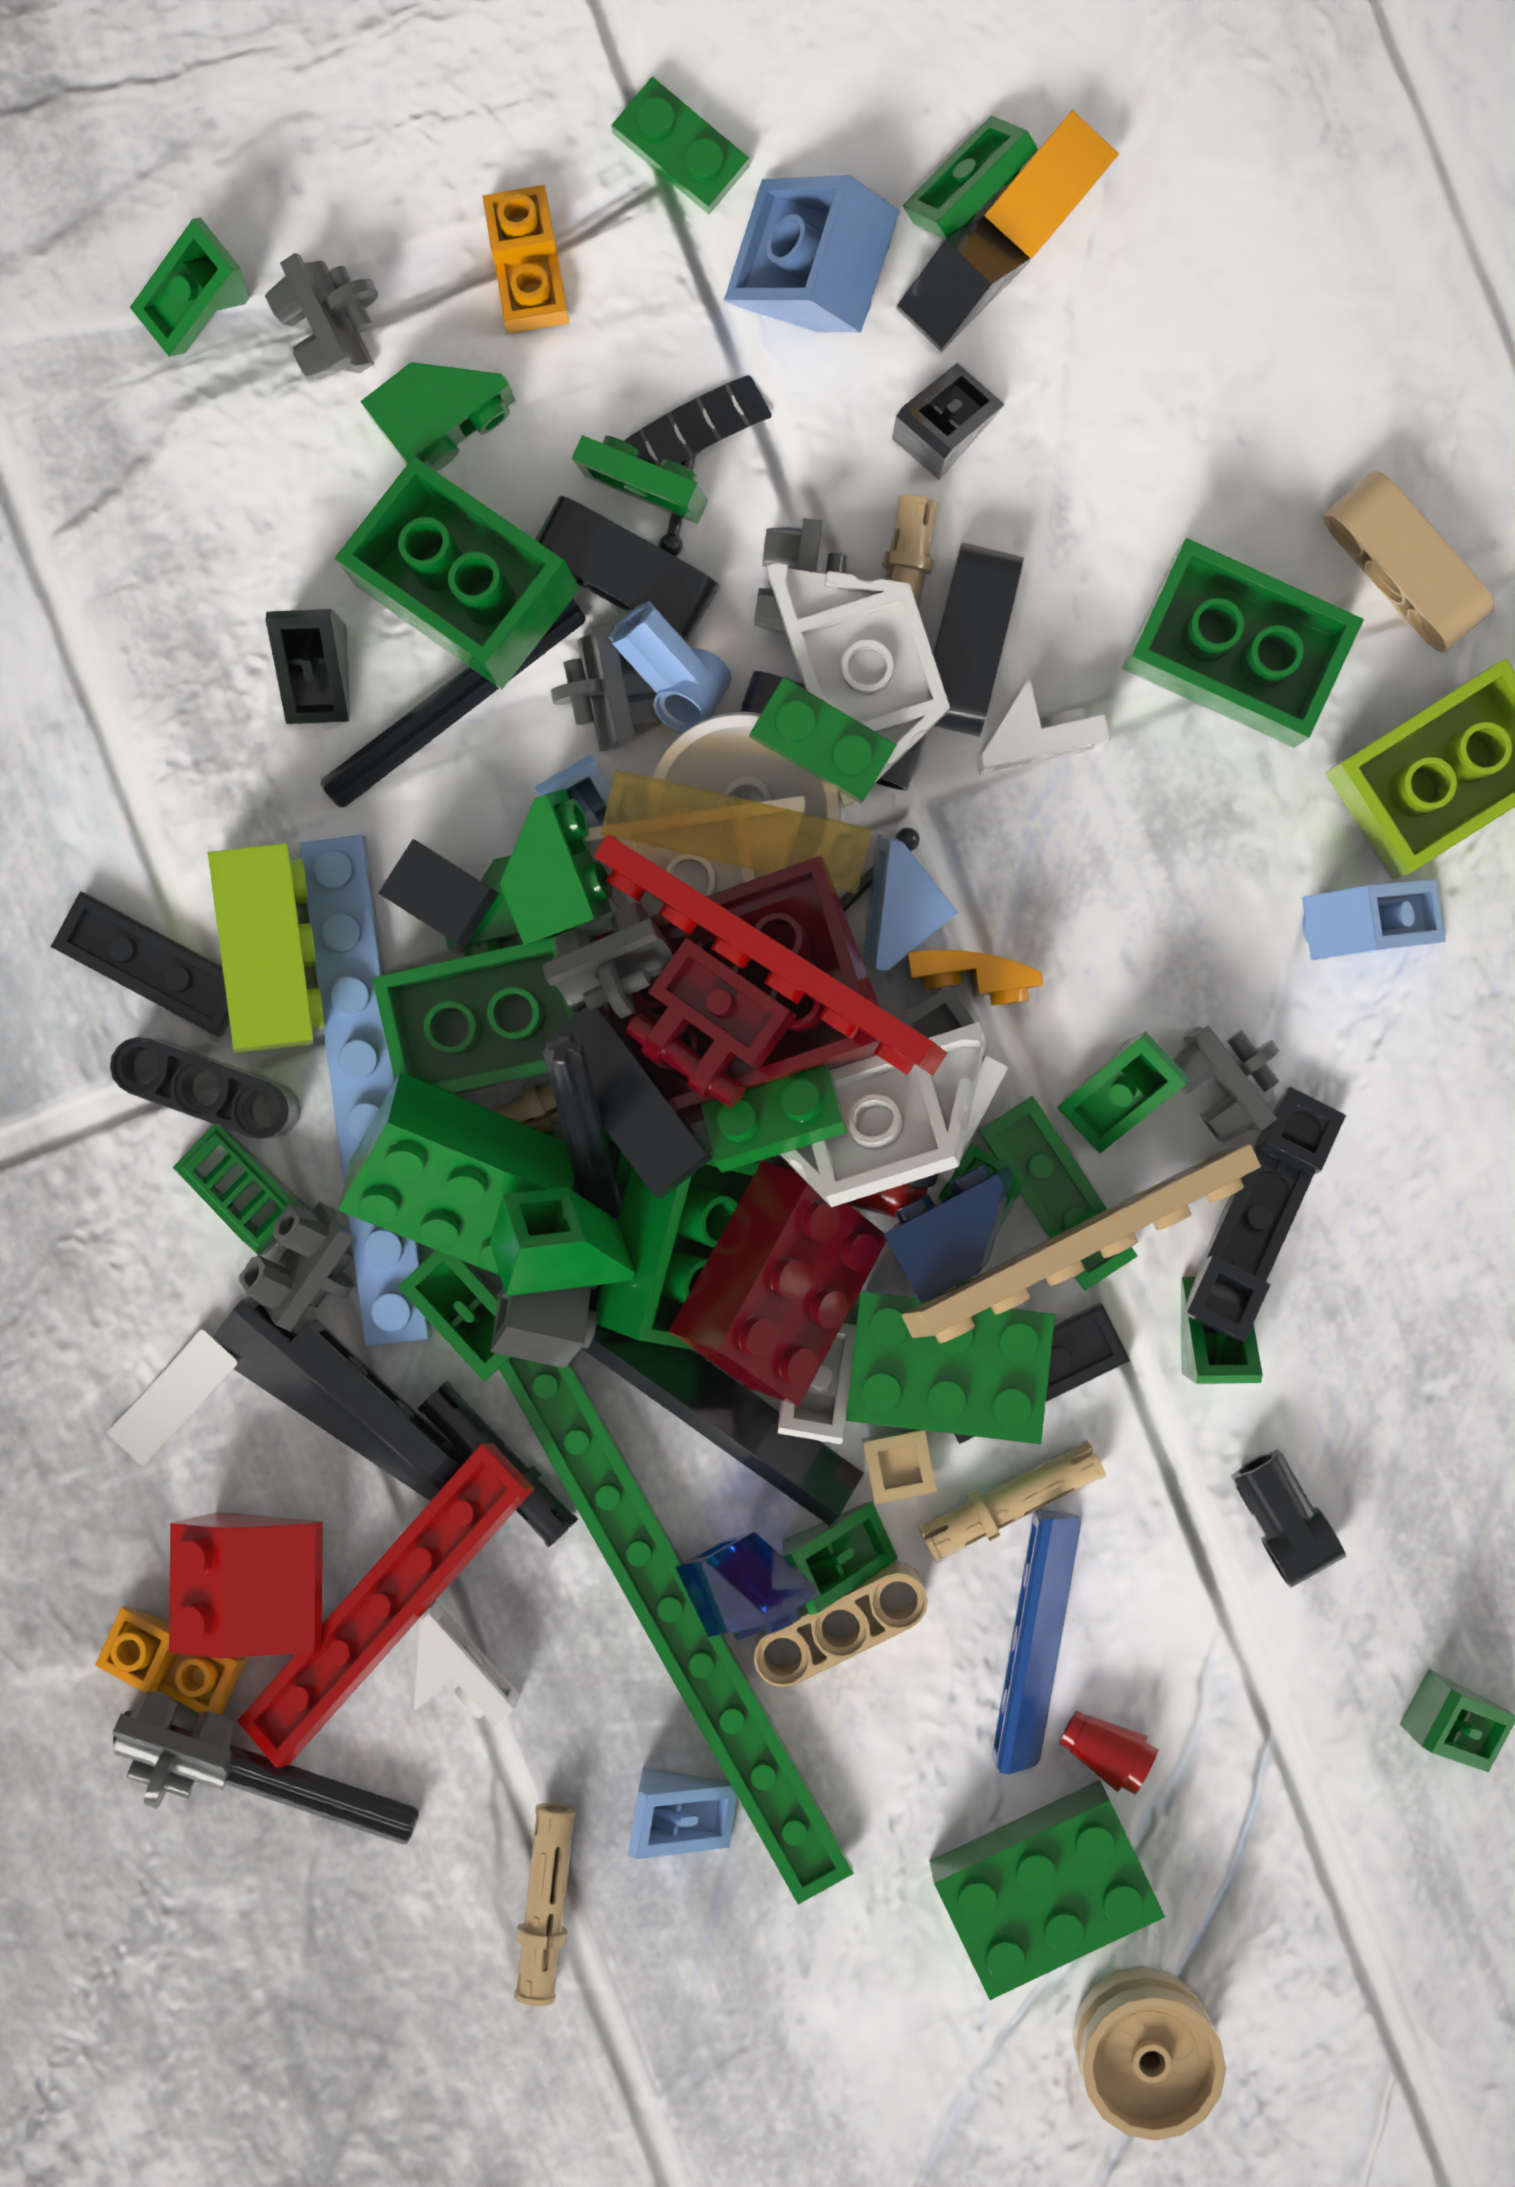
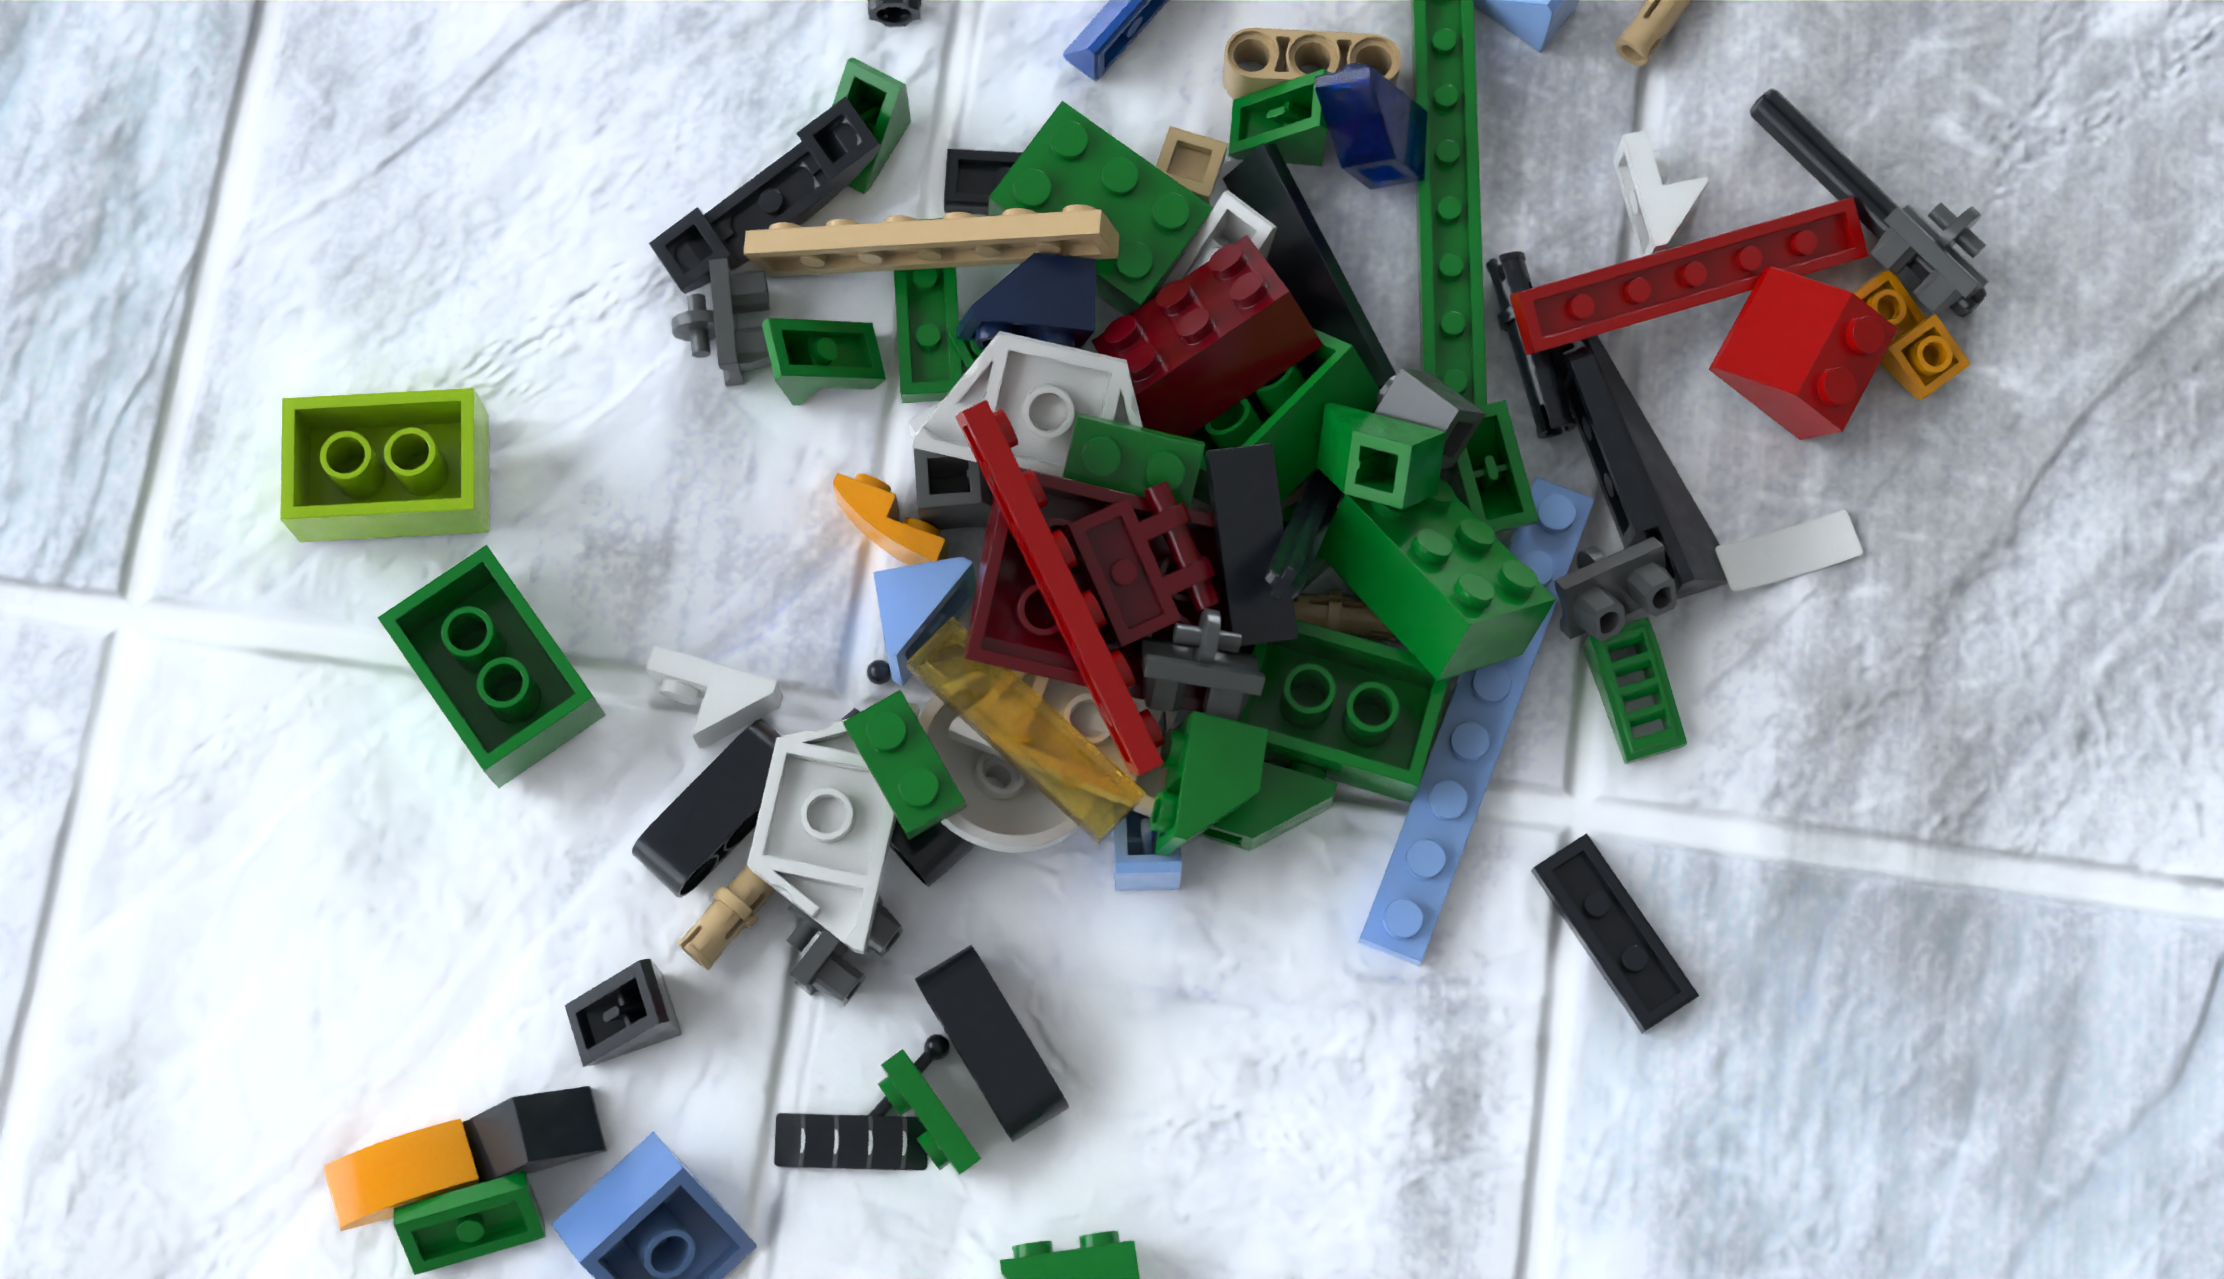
camera: 150 degrees left, 15 degrees down
(175, 1087) = (1615, 758): black beam -> none
(265, 948) = (1503, 867): lime brick -> none
(310, 664) = (1324, 1113): black slope -> none
(430, 720) = (1211, 1014): black axle -> none
(438, 893) = (1318, 832): black slope -> none
(458, 572) = (1144, 1111): green brick -> none
(599, 692) = (1073, 944): dark grey hips -> none
(685, 679) = (994, 910): light blue piece -> none
(1011, 1501) = (1113, 90): tan pin -> none
(1372, 919) = (530, 383): light blue slope -> none
(1409, 561) = (304, 664): tan beam -> none

